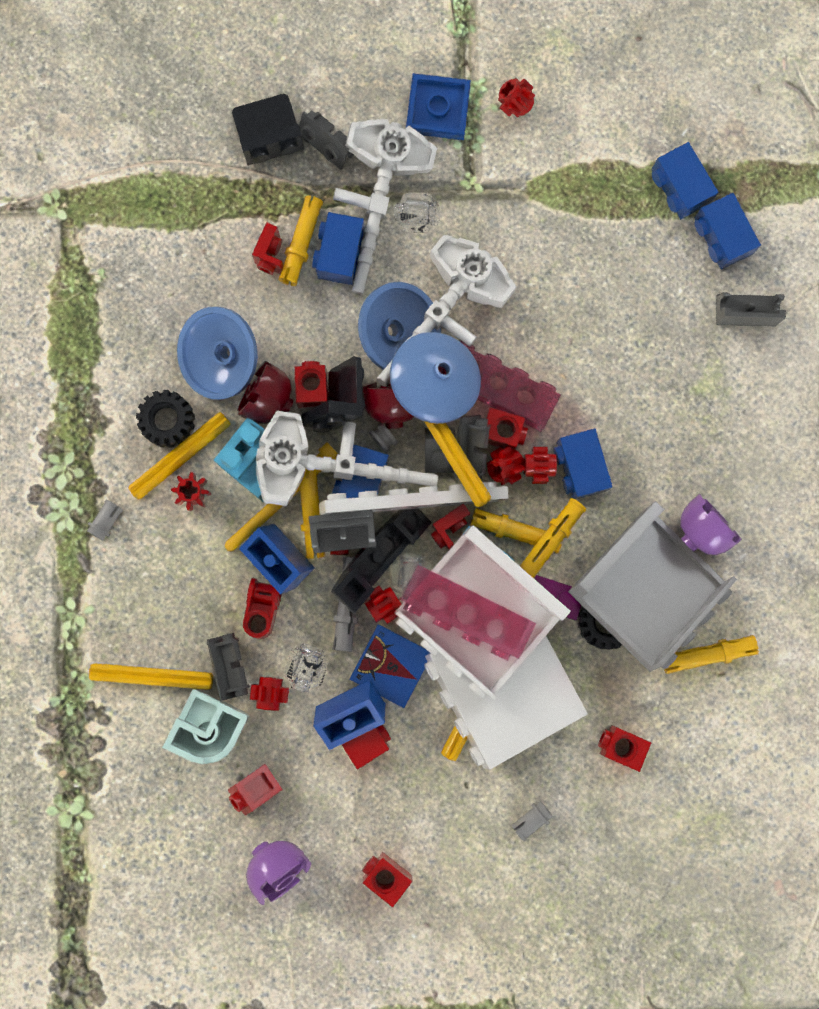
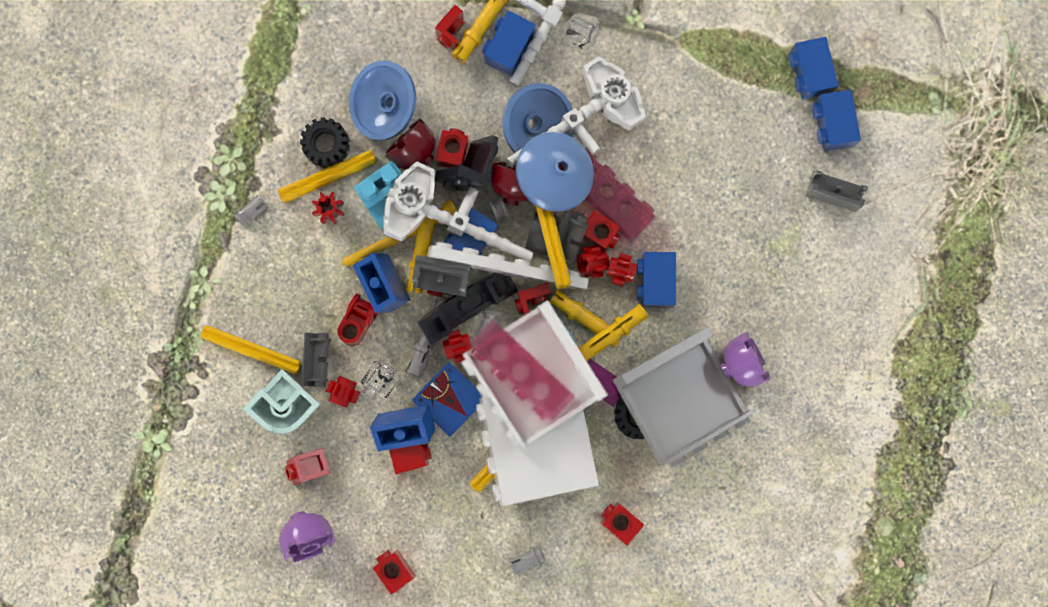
camera: 20 degrees right, 0 degrees up
(723, 651) = (723, 468): yellow pin -> none

